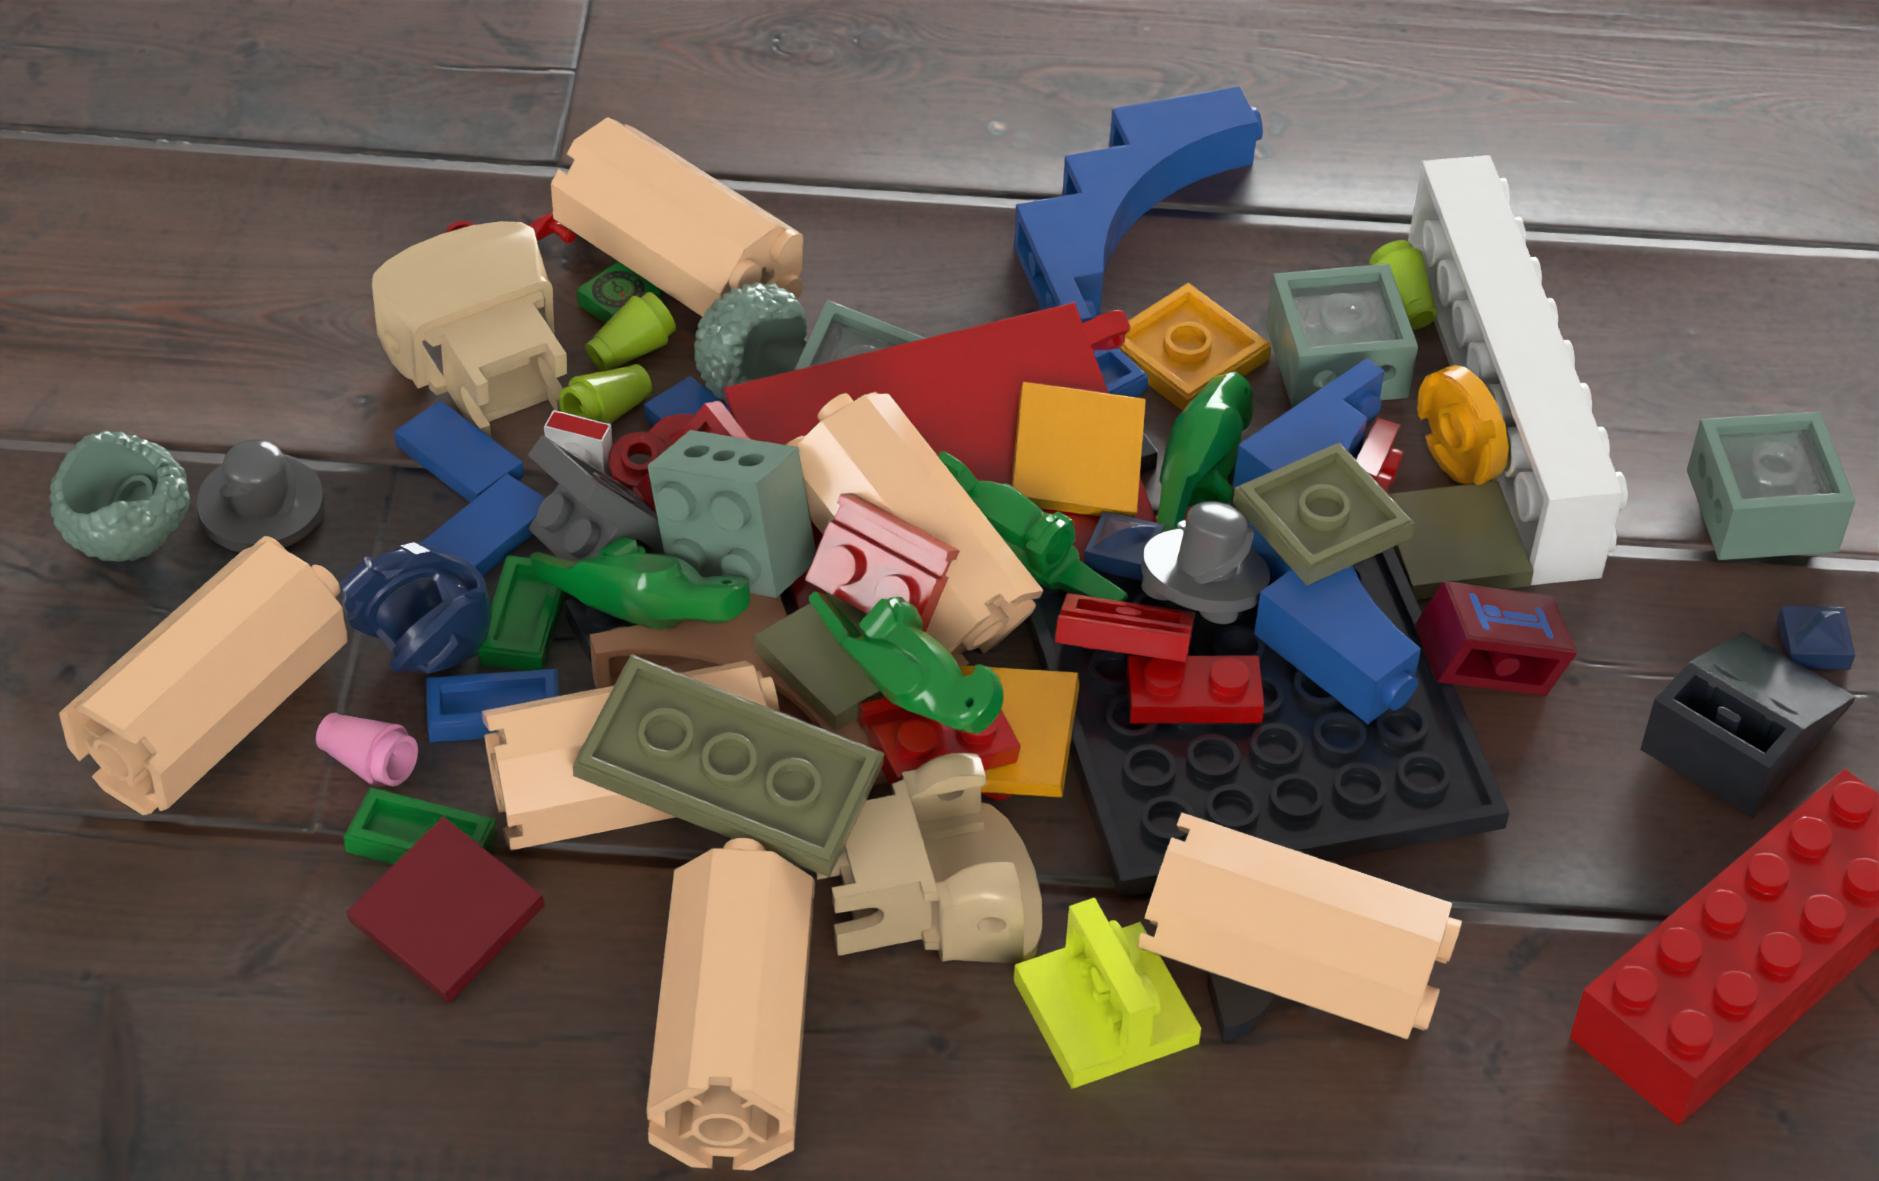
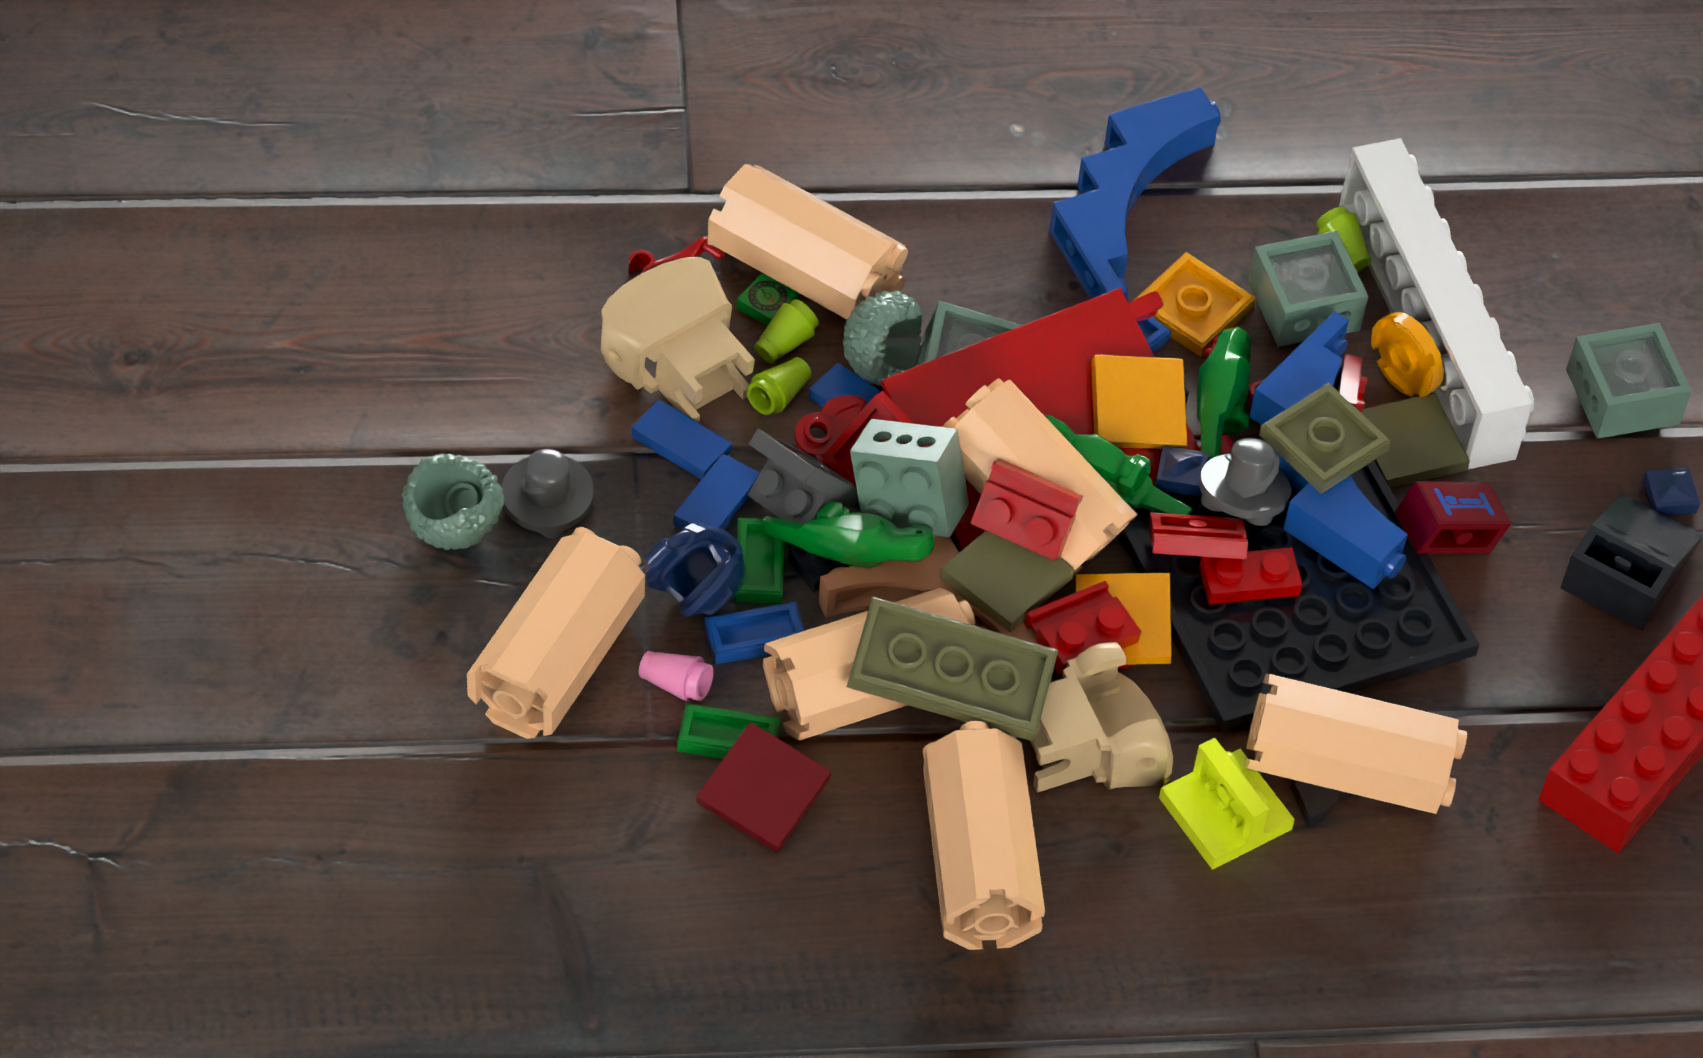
camera: 10 degrees left, 5 degrees up
(582, 437) = (773, 421): white plate -> none
(914, 666) = (1064, 583): green animal -> none

